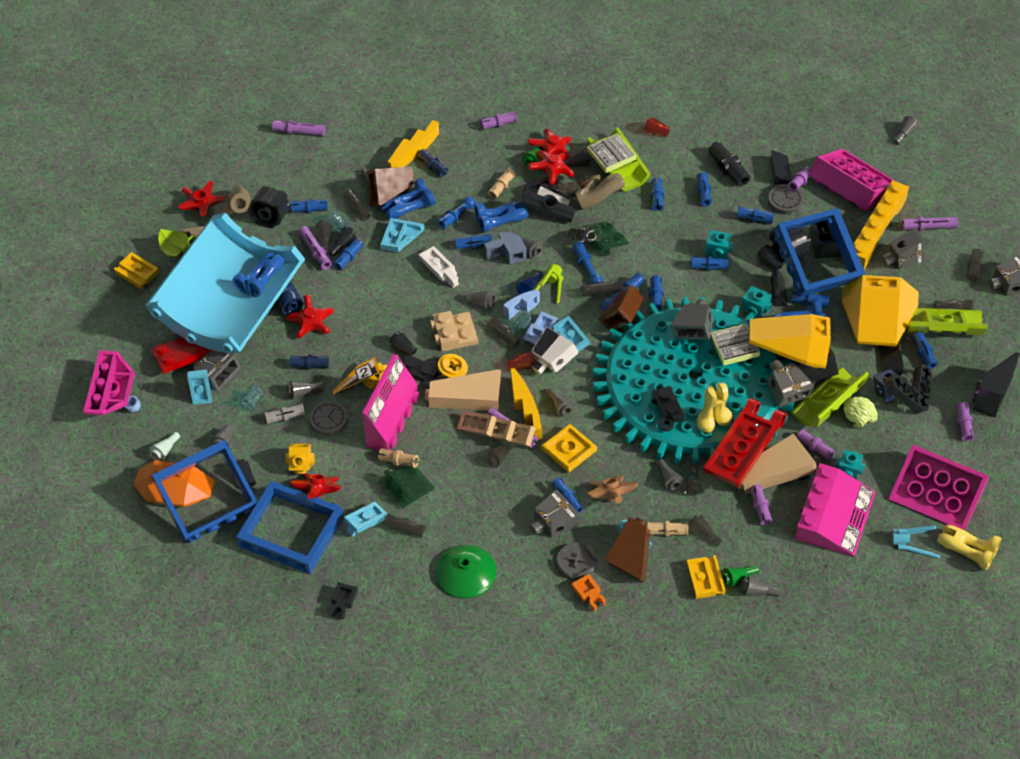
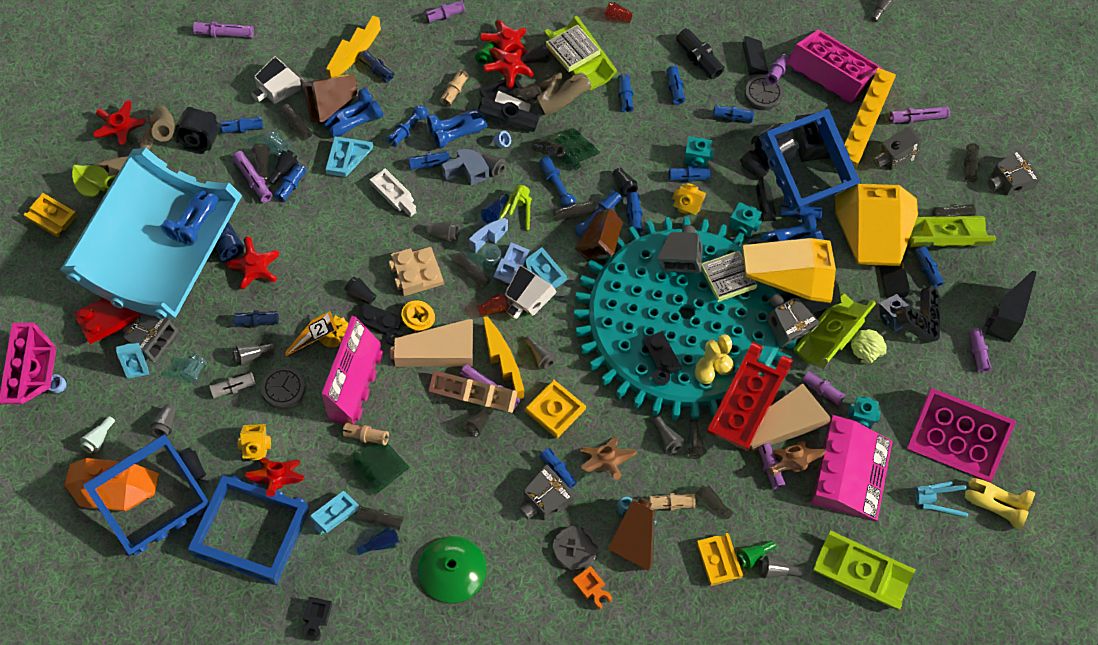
camera: 10 degrees left, 10 degrees up
(341, 172) = (275, 82): none -> white torso
(407, 543) = (384, 540): none -> clear blue cone
(541, 230) = (502, 142): none -> light blue hinge
(649, 266) = (624, 181): none -> black cone
(706, 282) = (693, 194): none -> yellow brick
(782, 498) = (795, 458): none -> medium nougat animal
(837, 593) = (863, 570): none -> lime piece

